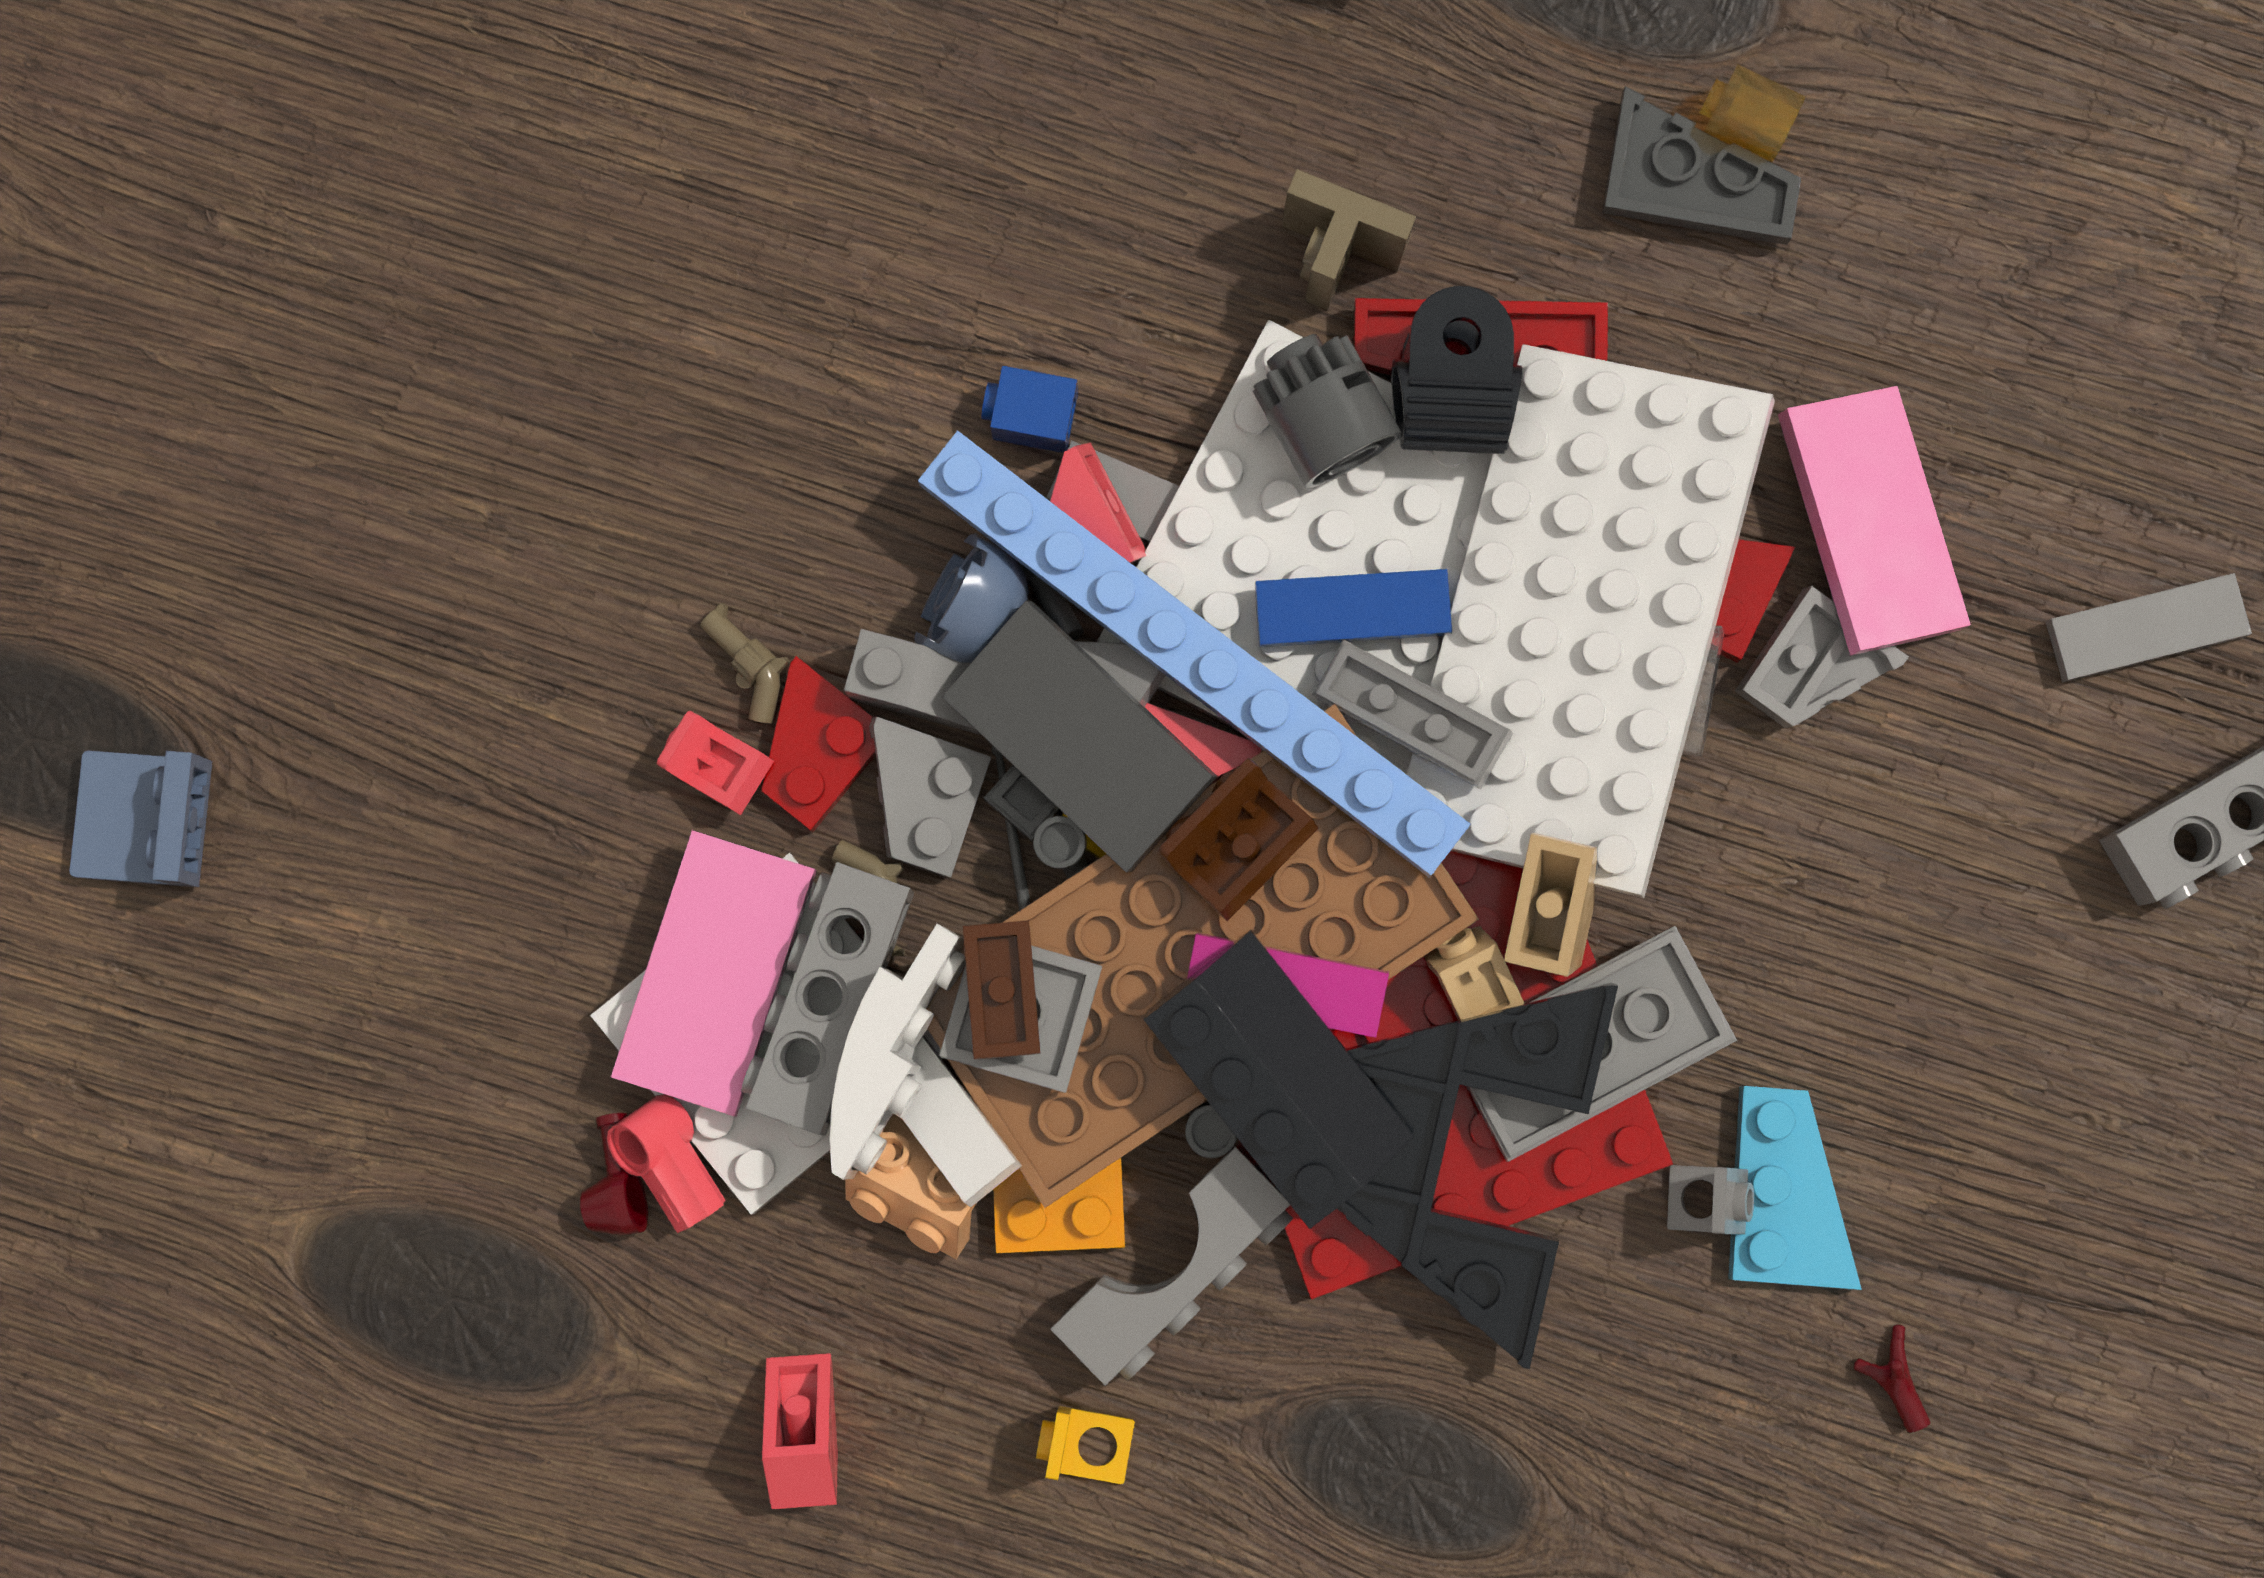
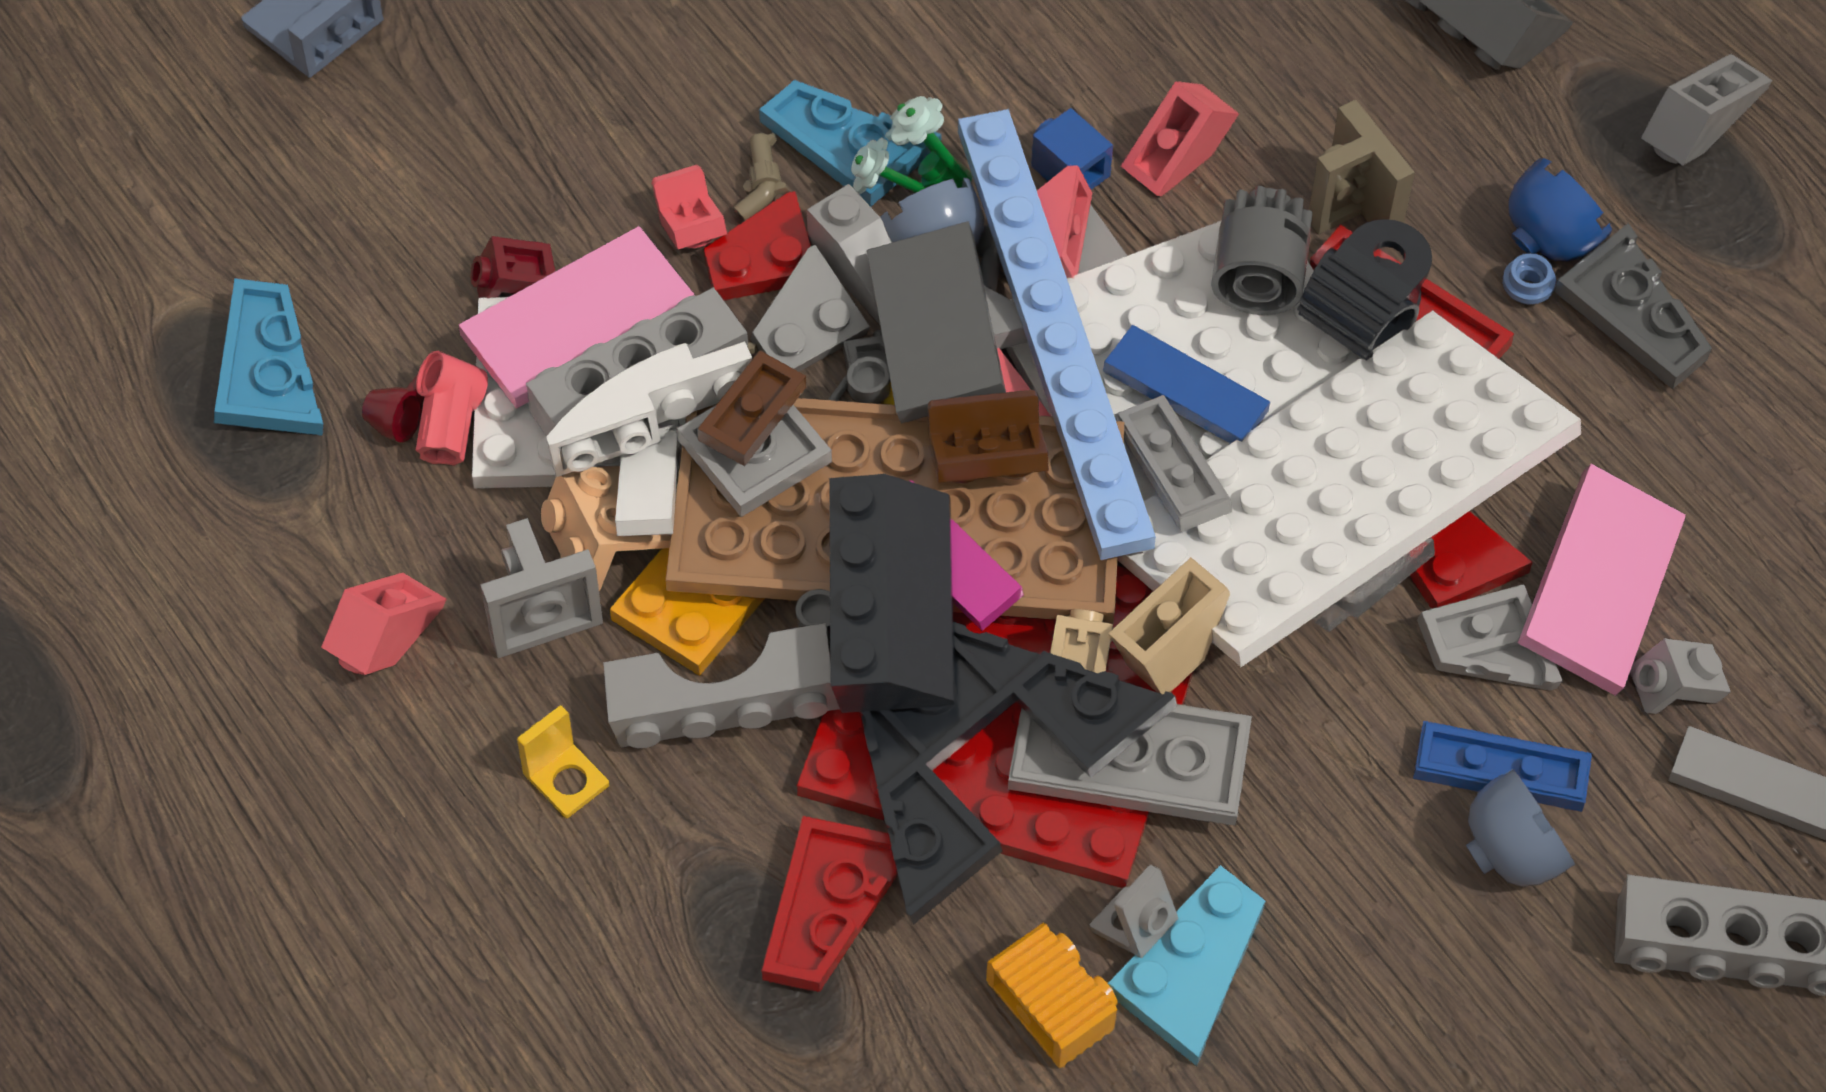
camera: 35 degrees right, 25 degrees down
(445, 1246) = (264, 364): none -> dark azure wing
(599, 959) = (510, 266): none -> dark red bracket
(800, 556) = (833, 132): none -> dark azure wing
(900, 529) = (915, 123): none -> plant
(906, 1296) = (538, 597): none -> light grey bracket
(1123, 308) = (1179, 137): none -> coral slope
(1426, 1387) = (826, 900): none -> red wing
(1552, 137) = (1554, 215): none -> blue cylinder
(1573, 201) = (1531, 268): none -> medium blue plate
(1696, 1331) = (1053, 993): none -> light orange brick
(1751, 112) = (1708, 292): clear yellow brick -> none
(1912, 783) = (1475, 758): none -> blue tile
(1986, 861) = (1515, 834): none -> sand blue cylinder
(2008, 570) = (1679, 671): none -> light grey bracket

